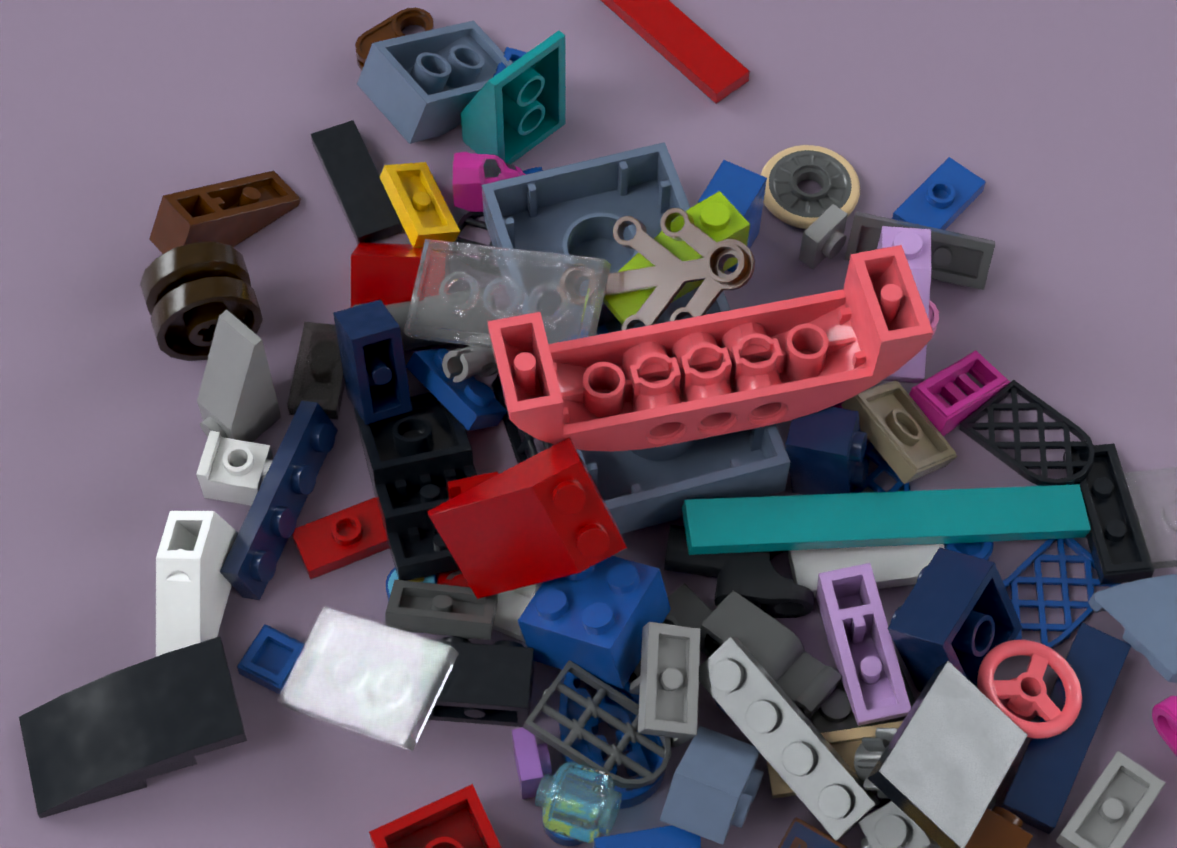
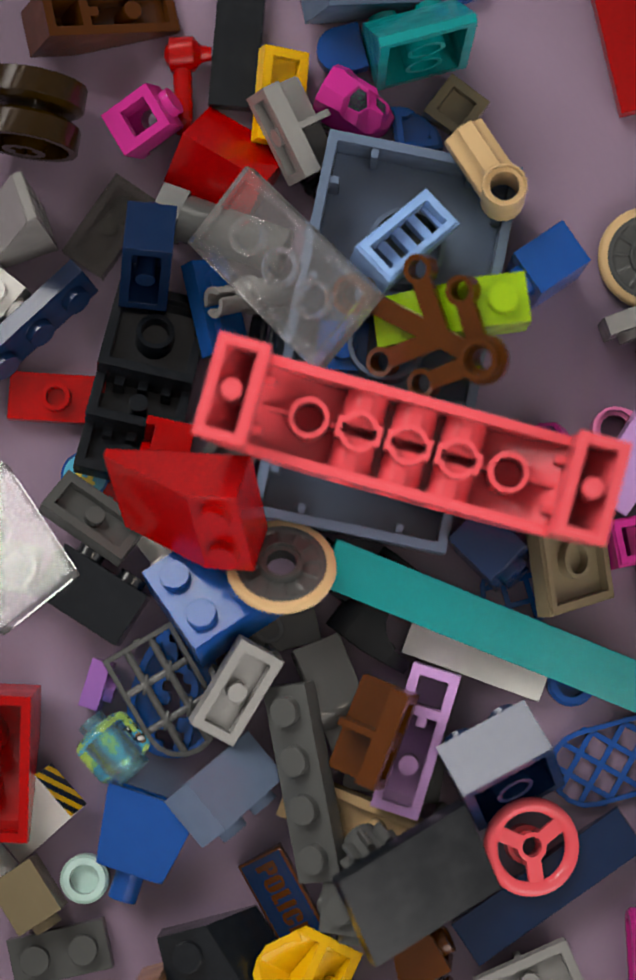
camera: 30 degrees right, 25 degrees up
(296, 260) = (130, 119): none -> dark pink brick
(316, 215) = (184, 57): none -> red piece
(439, 213) = (291, 128): none -> light grey panel
(443, 147) = (344, 47): none -> blue tile
(575, 144) = (455, 105): none -> dark tan plate
(593, 232) = (381, 262): none -> light blue slope
(650, 149) = (486, 167): none -> tan piece
(677, 537) = (291, 591): none -> dark grey wheel
(820, 649) = (373, 731): none -> reddish brown panel

